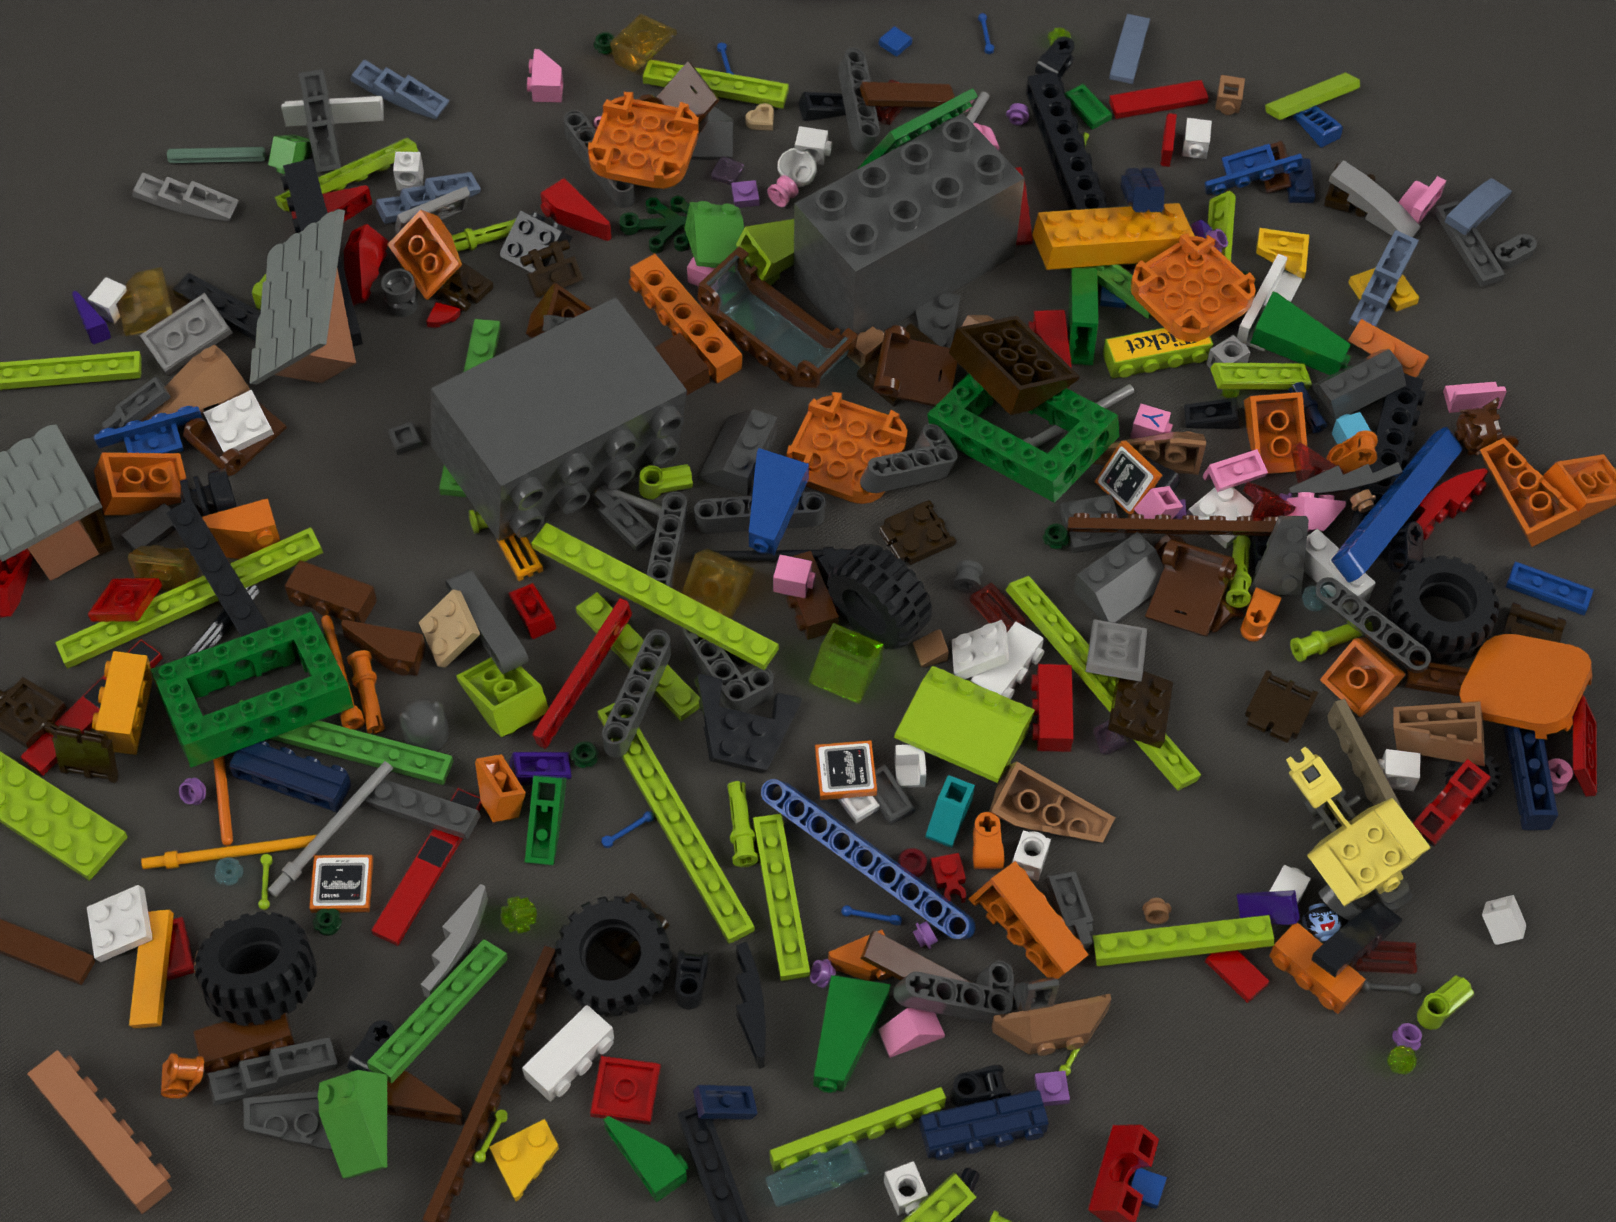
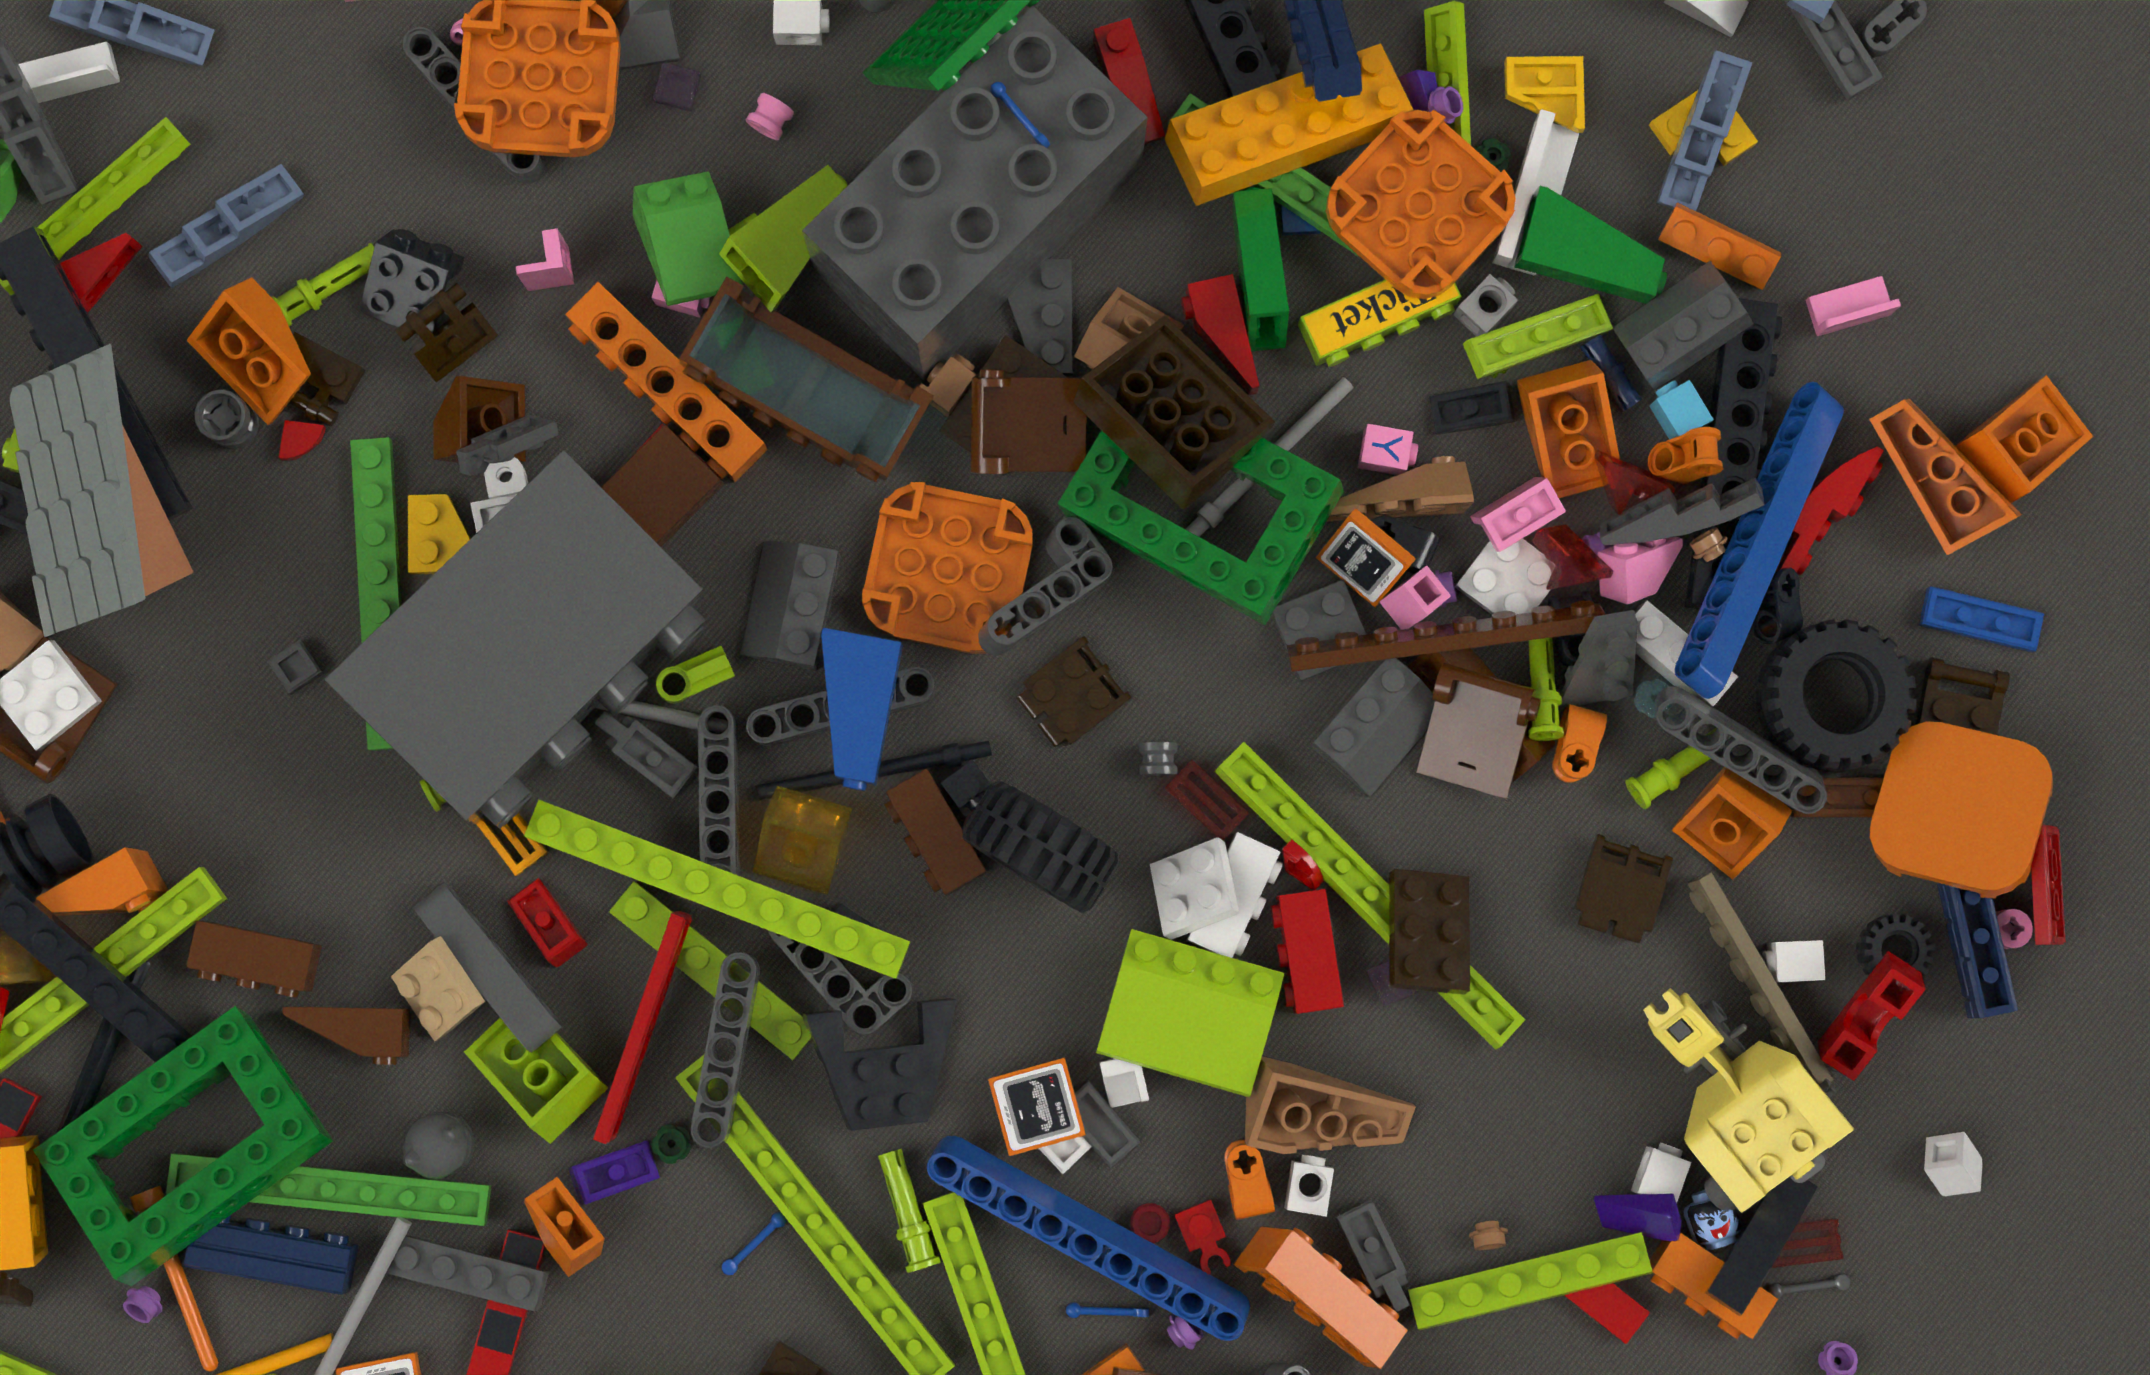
camera: 15 degrees left, 25 degrees up
(352, 717) = (340, 1146): orange piece -> none
(362, 260) = (155, 368): red slope -> none
(365, 681) = (337, 1085): orange pin -> none
(408, 170) = (184, 185): white brick -> none
(443, 207) = (240, 265): light grey tile -> none
(545, 819) = (638, 1253): green slope -> none
(573, 211) = (450, 211): red slope -> none
(624, 241) = (553, 272): none -> bright pink panel
(670, 222) = (611, 203): dark green plant -> none
(745, 194) = (712, 127): medium lavender plate -> none
(793, 576) = (912, 827): bright pink brick -> none
(798, 166) = (784, 70): white hair -> none
(846, 663) = (1009, 940): clear neon green slope -> none
(931, 649) = (1125, 886): medium nougat slope -> none
(934, 149) = (999, 91): none -> blue hinge
(950, 811) = (1190, 1146): teal slope -> none
(1055, 530) = (1262, 668): dark green plate -> none
(1056, 651) = (1301, 865): none -> red tile
(1116, 650) = (1385, 849): light grey tile -> none
(1442, 731) = (1852, 905): medium nougat wedge -> none
(1444, 1001) = (1886, 1298): lime piece -> none
(1481, 428) = (1870, 376): reddish brown hat -> none

